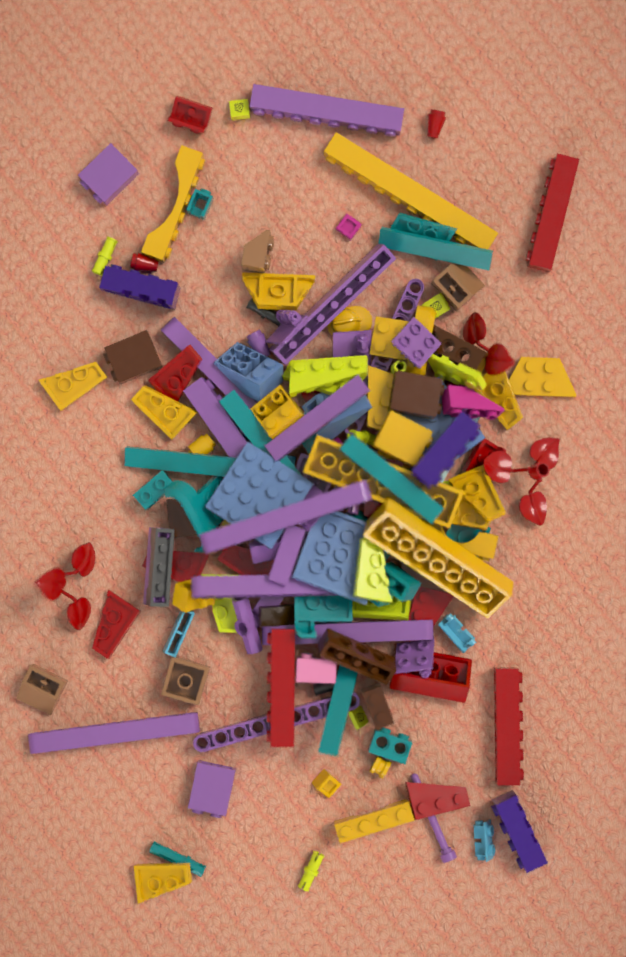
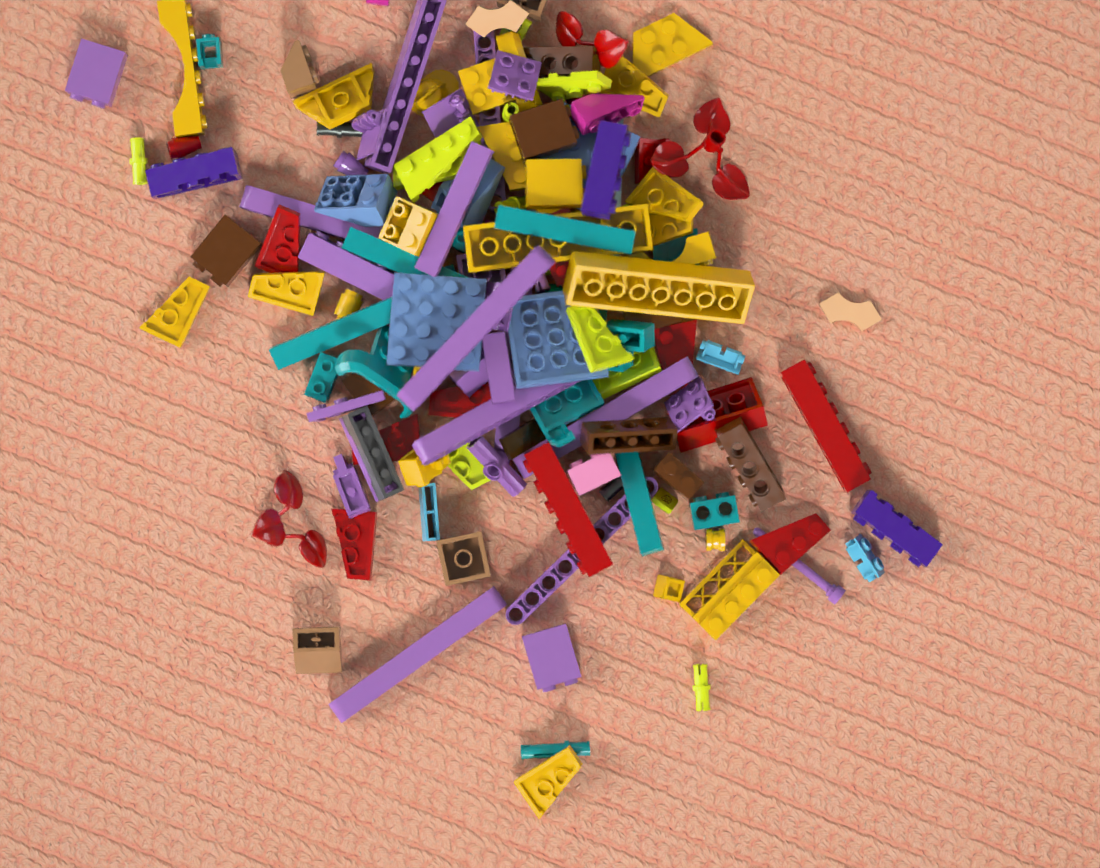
camera: 30 degrees left, 0 degrees up
(130, 582) = (350, 487): none -> medium lavender hinge
(156, 519) = (343, 406): none -> medium lavender wing
(366, 808) = (727, 587): none -> yellow fence
(434, 295) = (486, 20): none -> light nougat tile
(438, 697) = (737, 432): none -> reddish brown brick
(579, 657) = (860, 314): none -> light nougat tile

